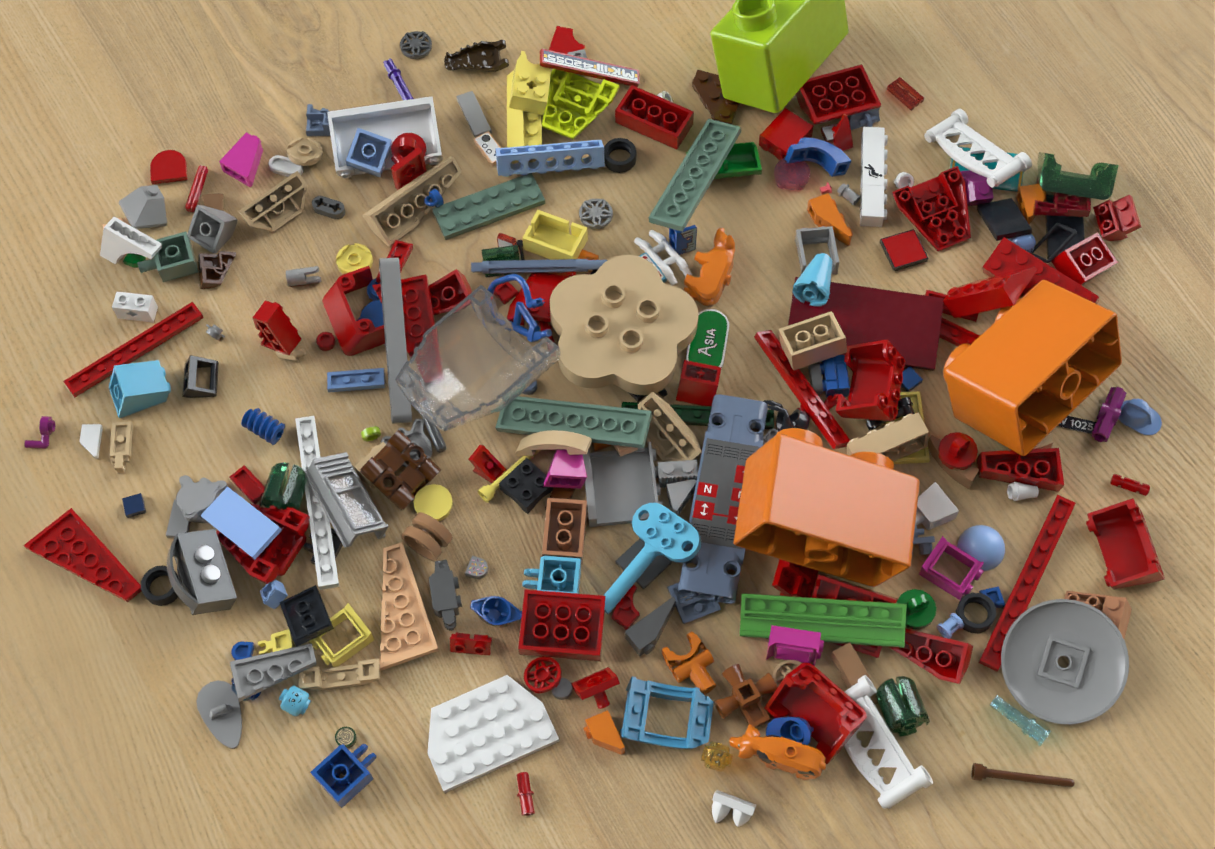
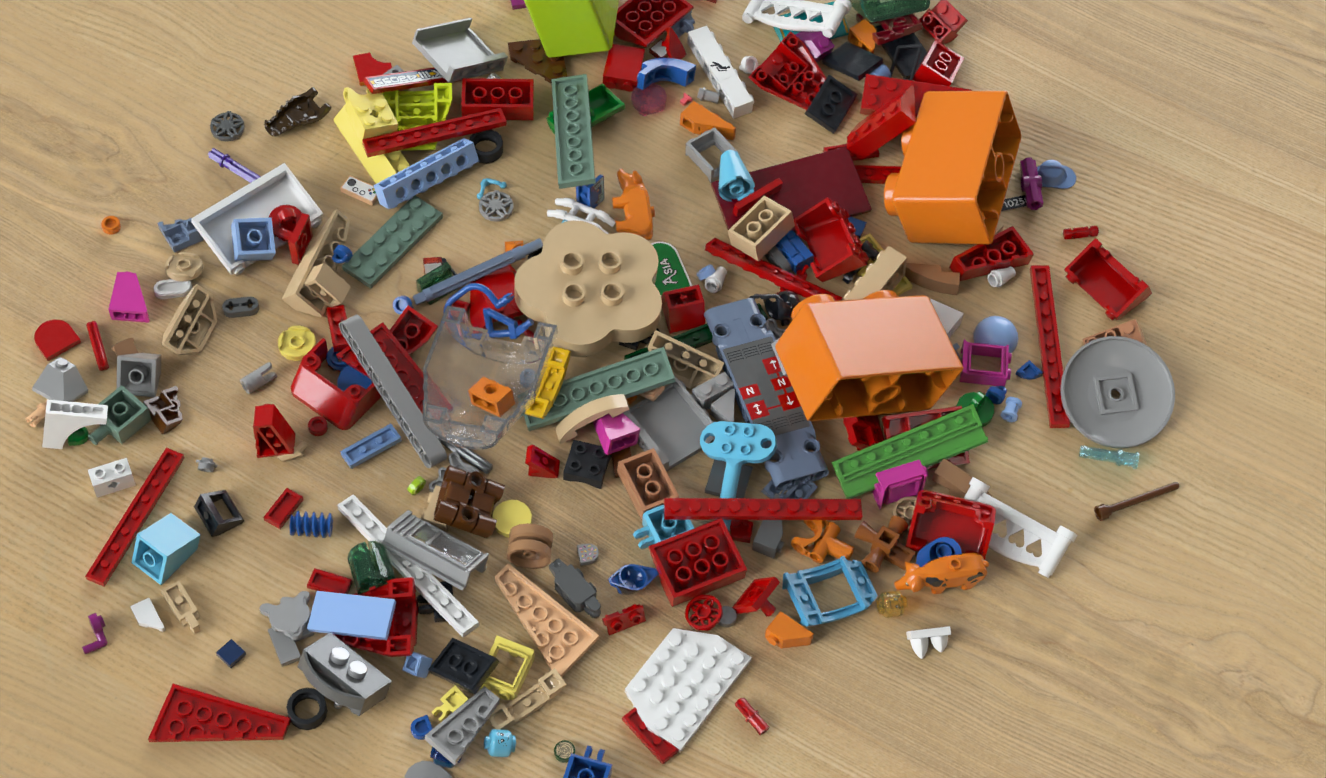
camera: 35 degrees left, 5 degrees down
(253, 399) = (283, 508): none -> red tile
(271, 90) = (111, 225): none -> orange tile
(405, 220) = (327, 285): none -> tan brick
(427, 775) = (658, 747): none -> red tile
(461, 265) = (401, 303): none -> tile
(473, 114) = (324, 166): light grey tile -> none
(479, 384) = (491, 396): none -> orange brick
(487, 492) = (556, 486): light yellow piece -> none
(535, 398) = (550, 383): none -> yellow slope
(553, 237) = (471, 245): light yellow piece -> none
(577, 123) = (434, 132): none -> red plate
(601, 188) = (485, 182): none -> medium azure piece
(645, 58) = (457, 51): none -> light grey panel
(650, 606) = (761, 509): none -> red plate
(742, 358) = (705, 272): none -> light blue tile
(746, 370) = (715, 281): none -> white cone
(837, 308) = (749, 201): none -> red tile
(901, 705) = (1014, 488): clear green cylinder -> none
(903, 250) = (783, 123): red tile -> none
(937, 655) = (1015, 436): red wedge -> none
(943, 605) = (996, 394): none -> blue tile
(957, 451) = (934, 265): red tile -> none
(958, 251) = (831, 104): none -> black tile
(983, 600) = (1030, 378): black tyre -> none

